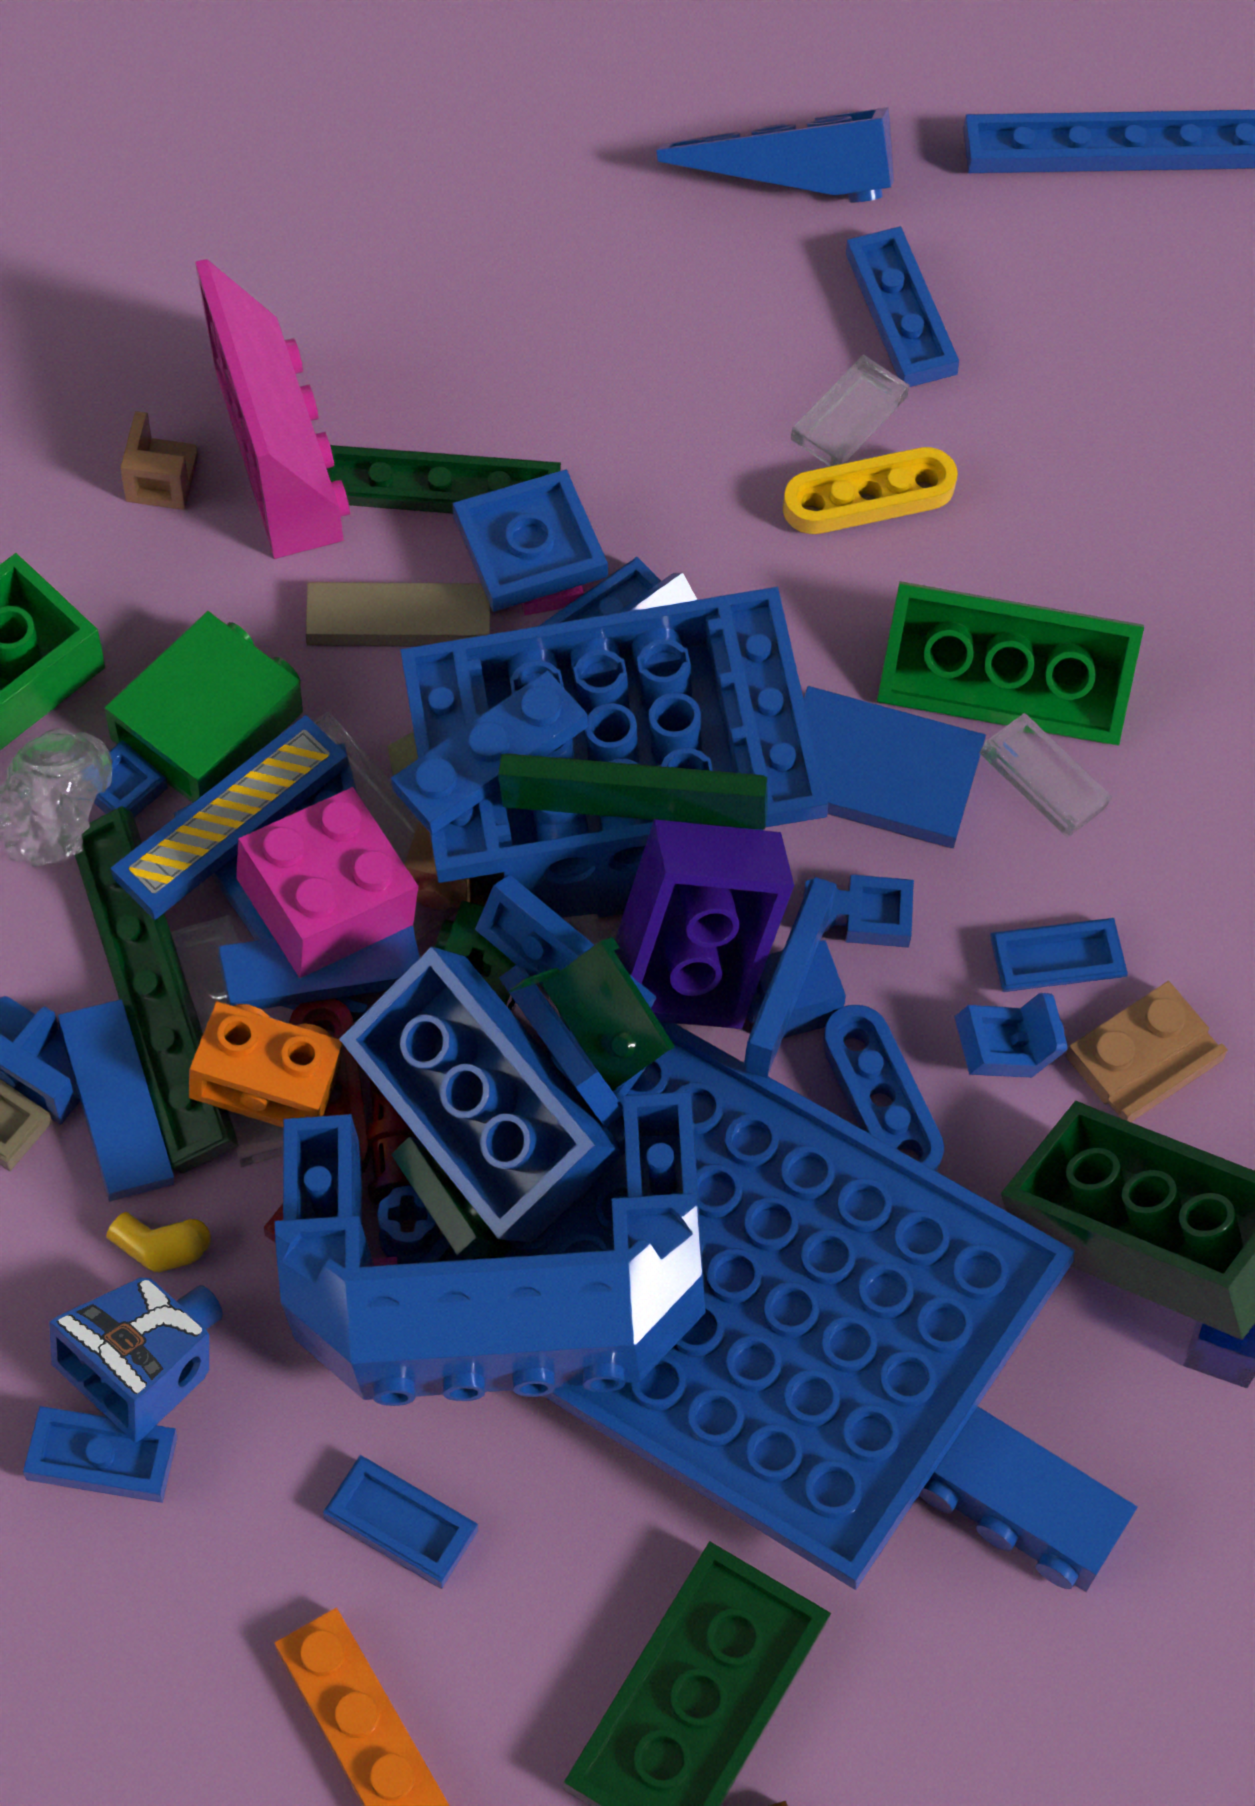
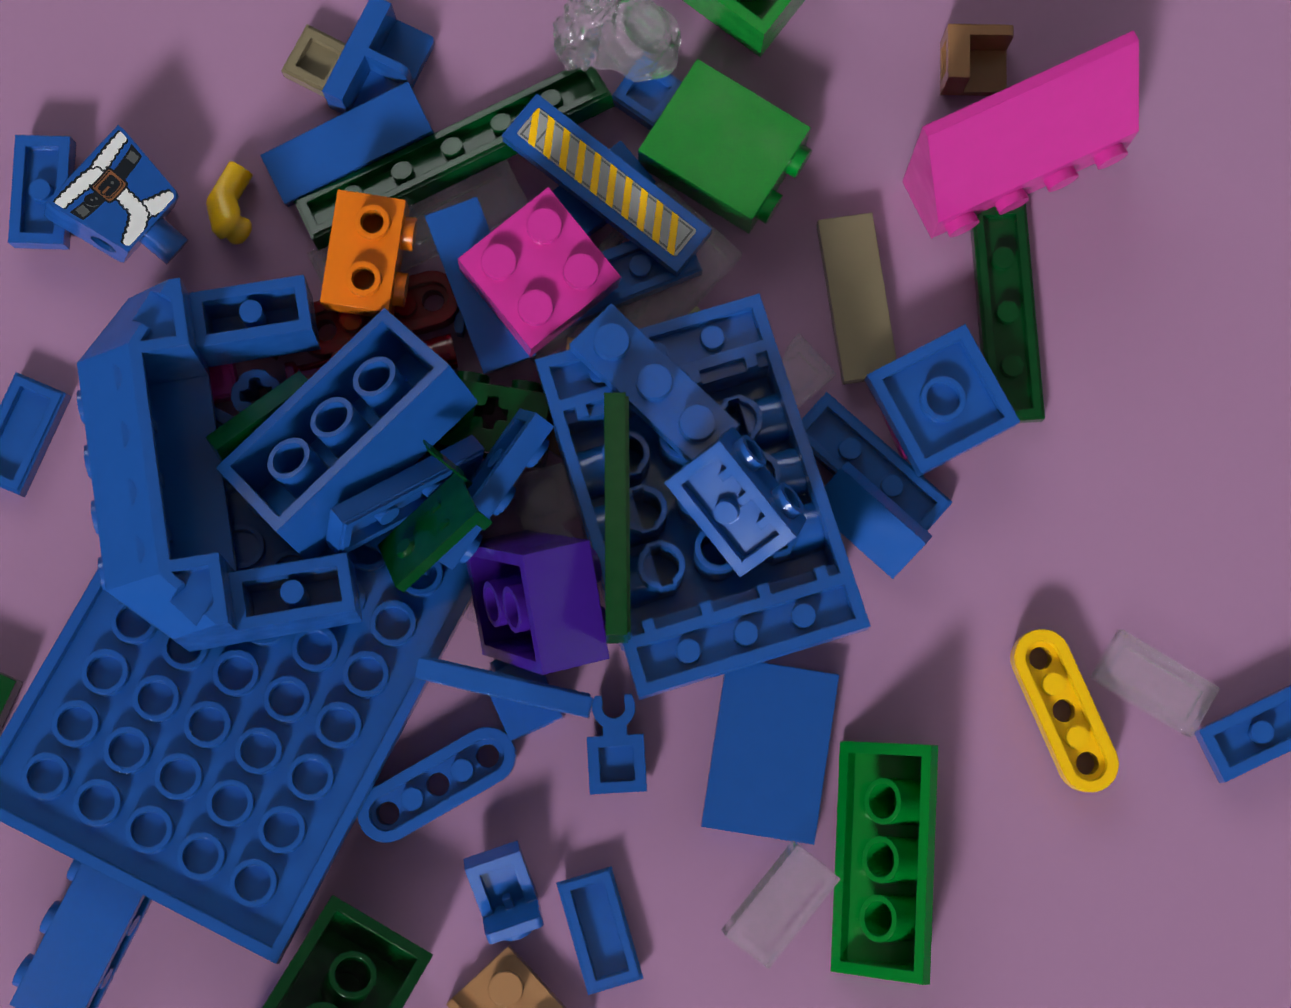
camera: 85 degrees right, 20 degrees up
(635, 676) = (738, 501): none -> blue bracket

